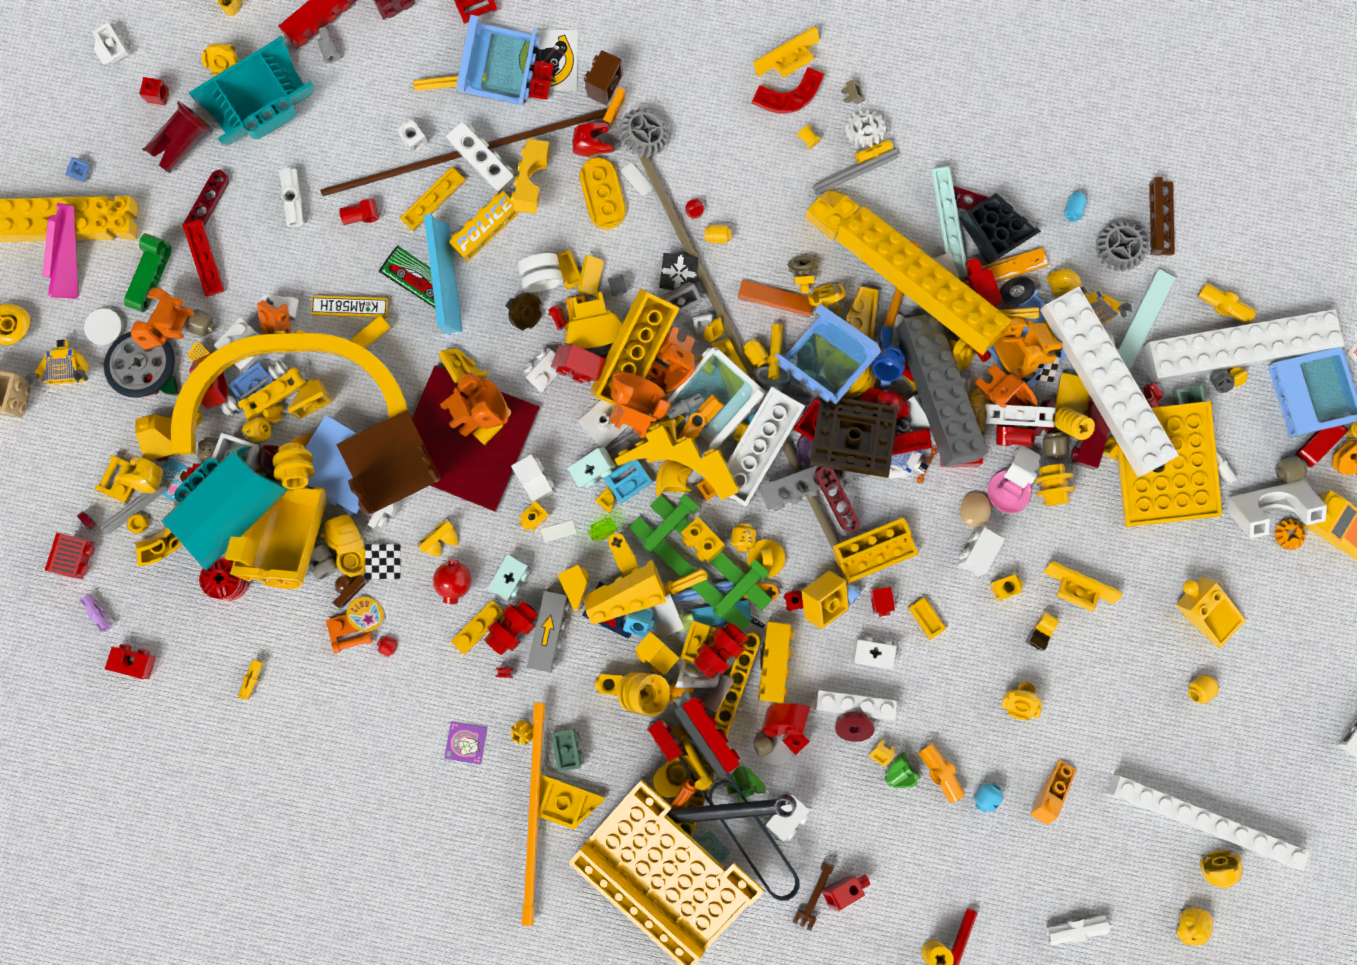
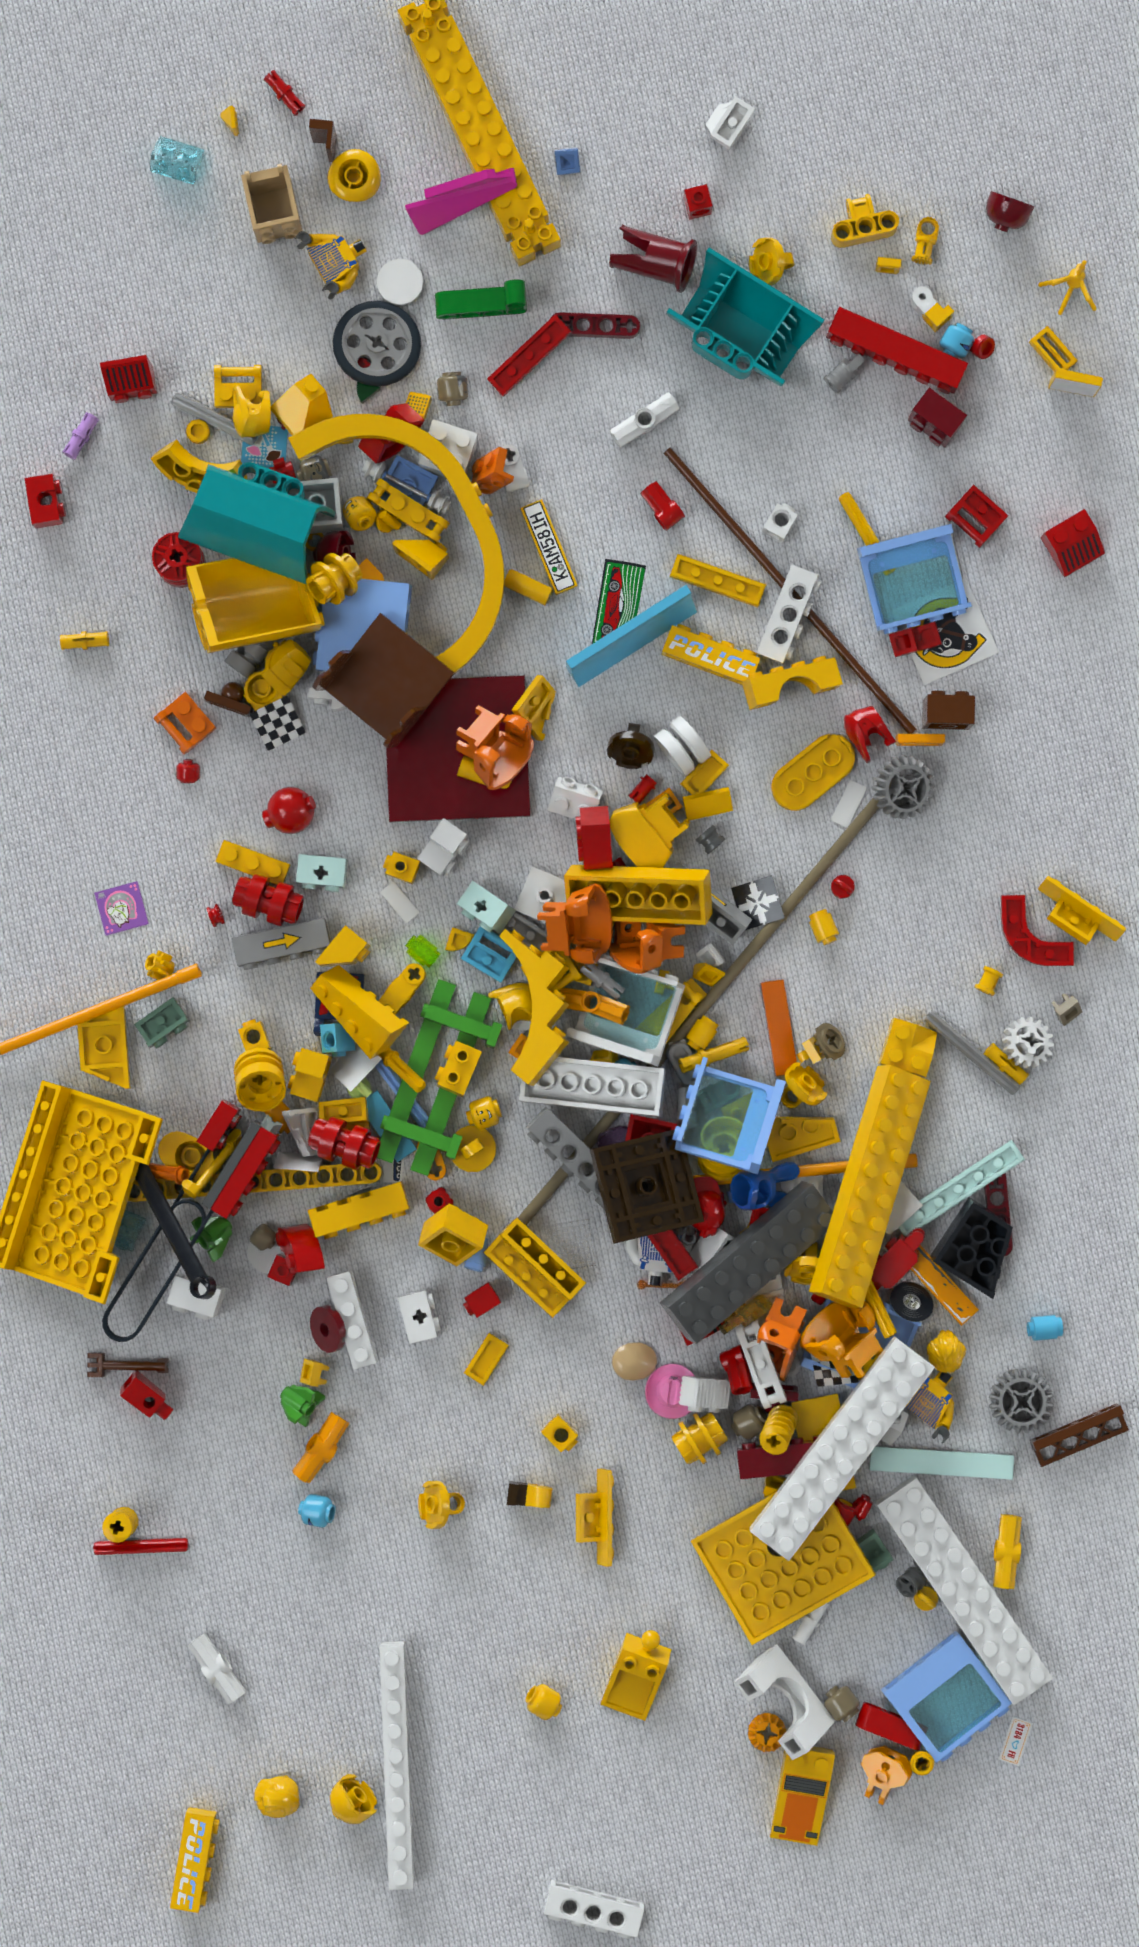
camera: 70 degrees right, 5 degrees up
(86, 519) = (176, 374): dark red tile -> none
(164, 322) = (433, 349): orange piece -> none
(241, 550) = (215, 568): yellow panel -> none
(365, 614) = (211, 731): sticker -> none
(444, 532) = (323, 765): yellow tile -> none
(839, 497) = (571, 1198): dark red beam -> none
(981, 551) = (586, 1386): white brick -> none
(1053, 794) = (354, 1581): light orange slope -> none

